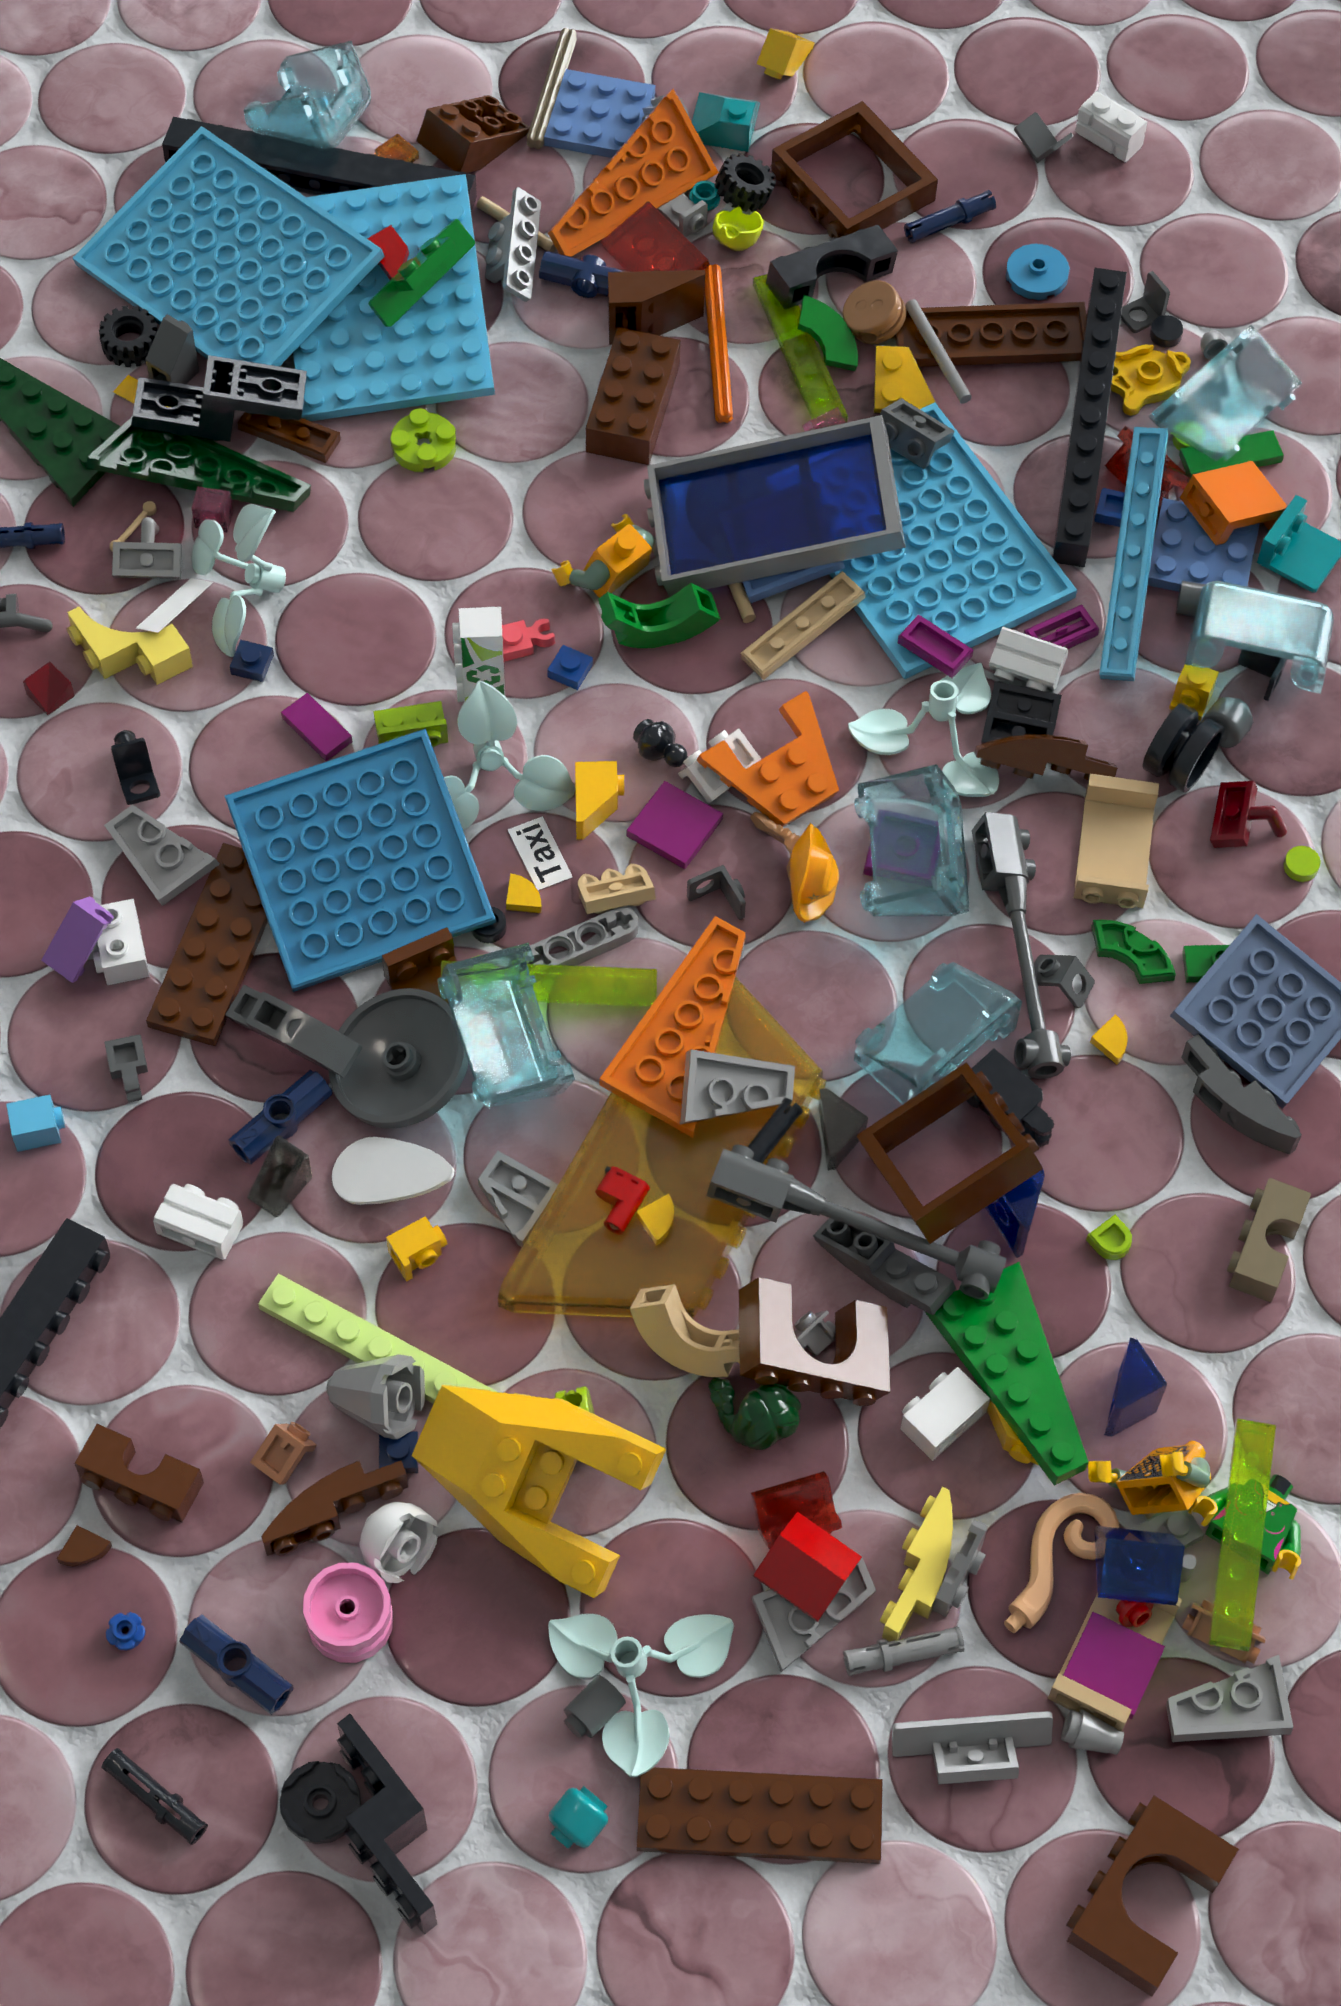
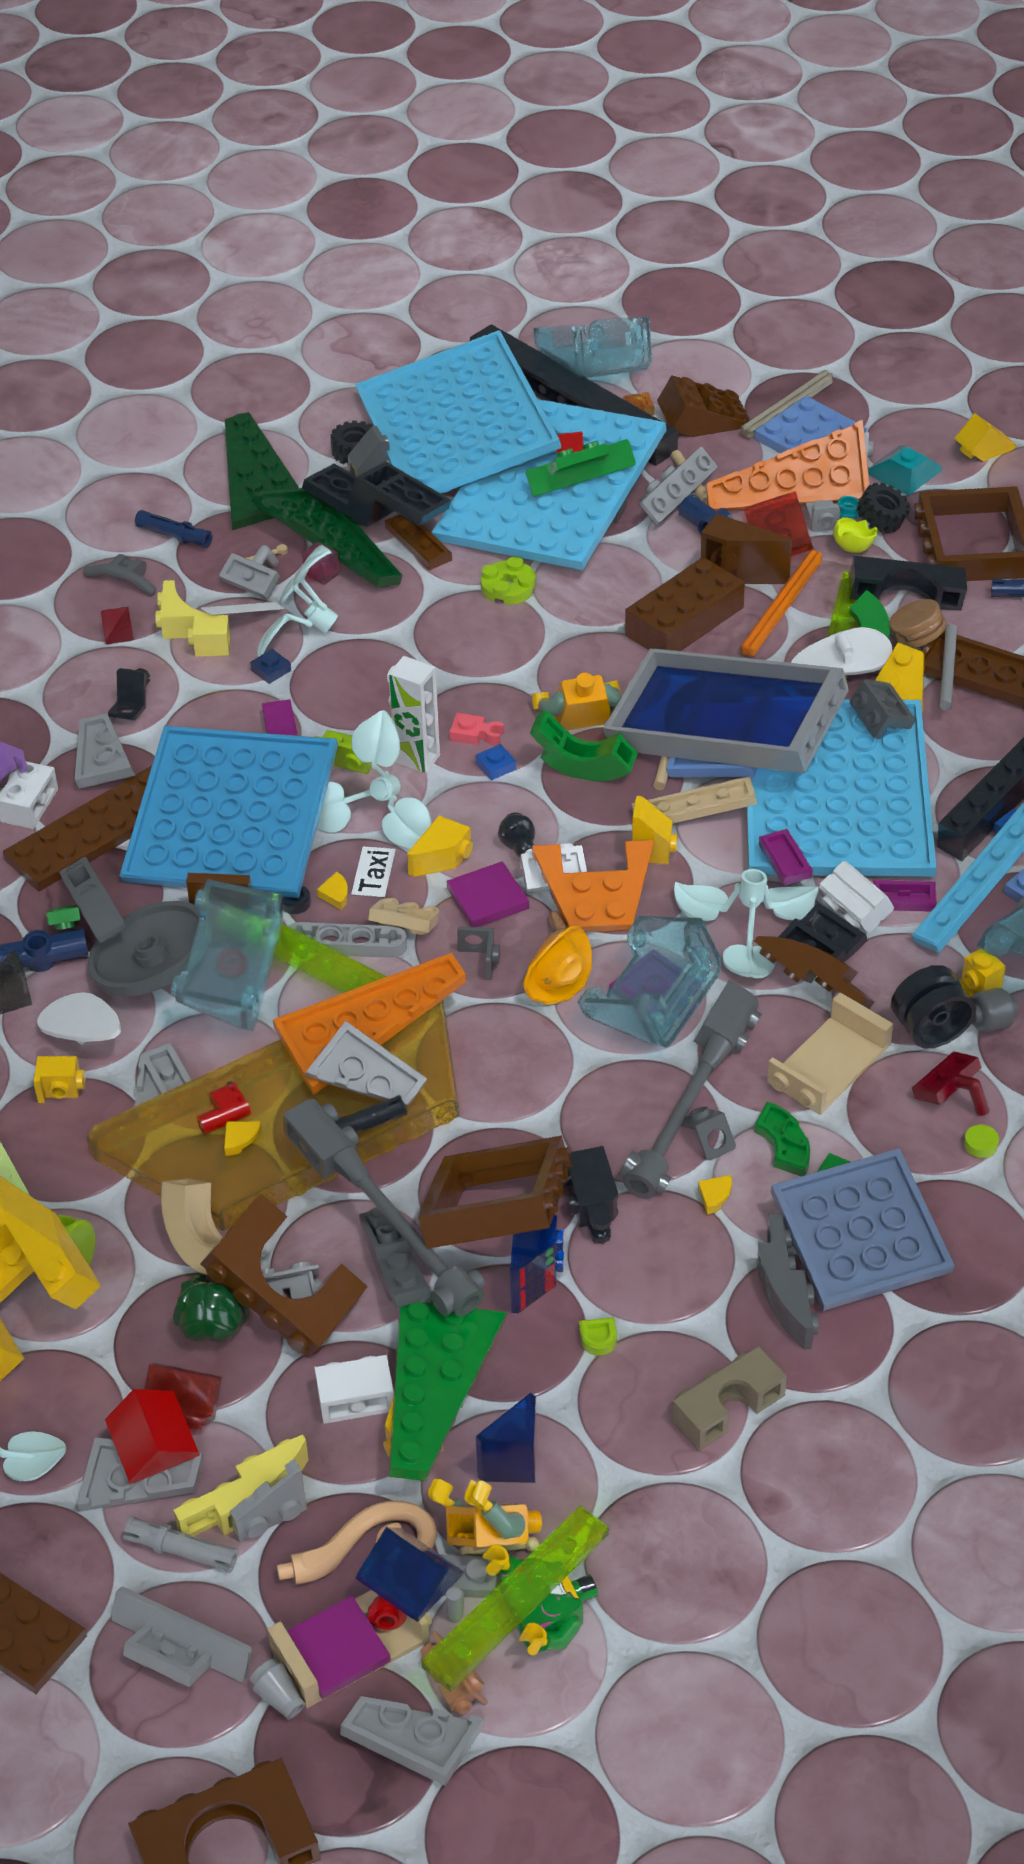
camera: 35 degrees right, 15 degrees down
(280, 1065) = (63, 916): none -> green plate
(791, 676) = (653, 825): none -> yellow slope
(827, 379) = (854, 650): none -> white shield
(839, 1126) = (438, 1142): clear smoke slope -> none
(936, 1030) = (575, 1109): clear light blue windscreen -> none

